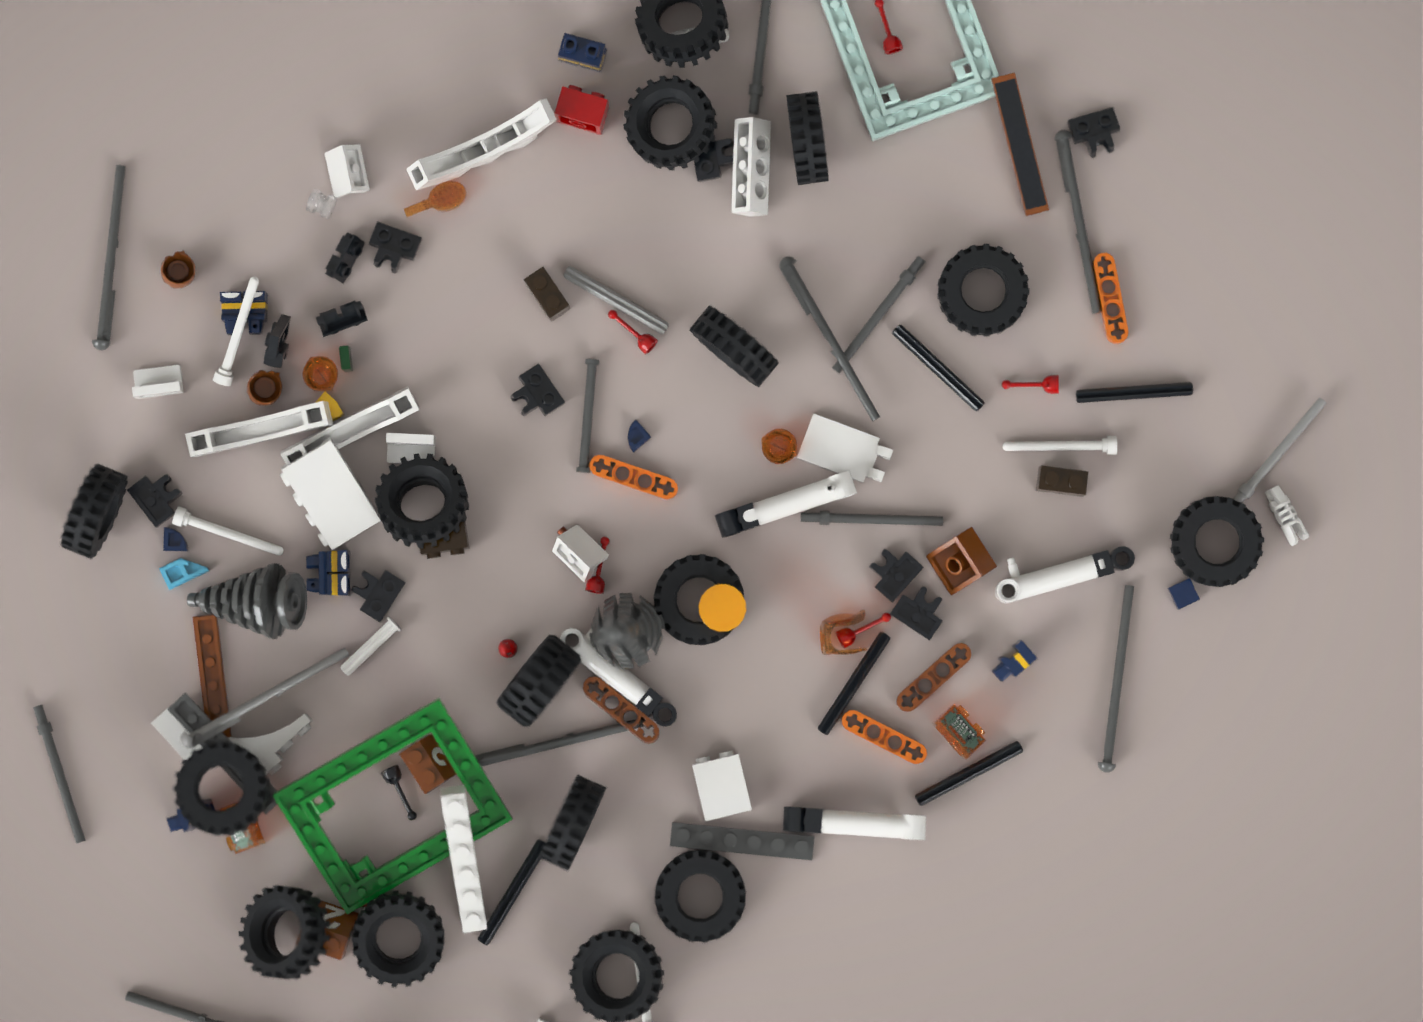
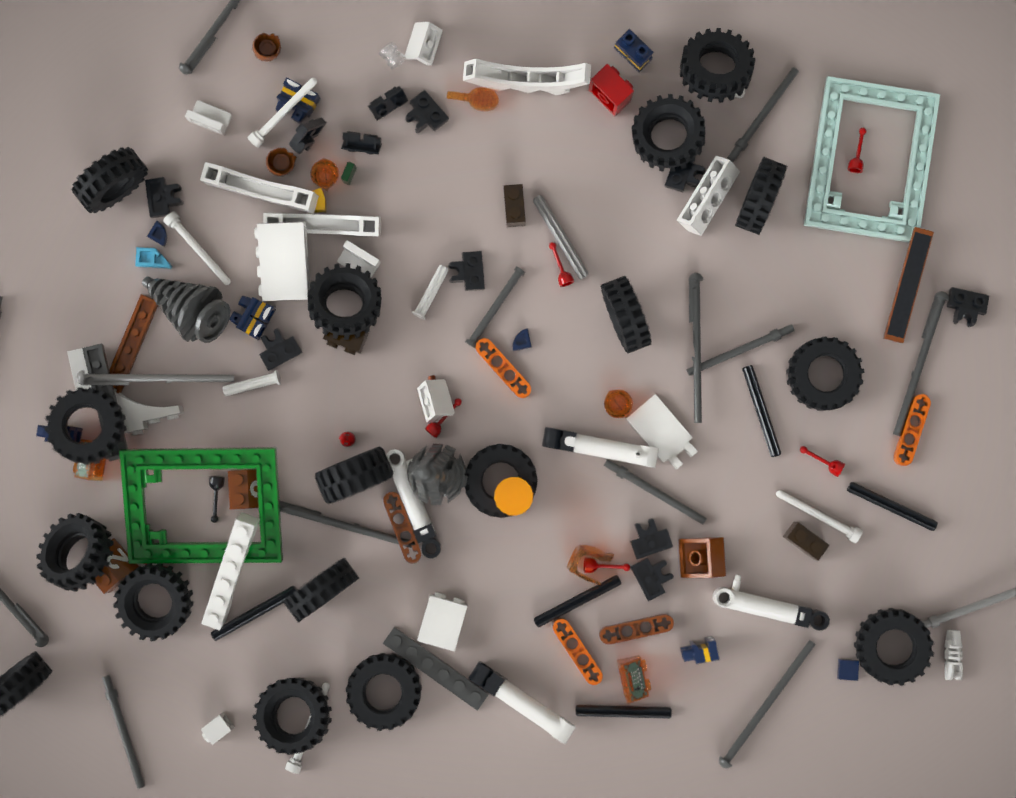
camera: 35 degrees right, 0 degrees up
(508, 438) = (430, 292): none -> white axle

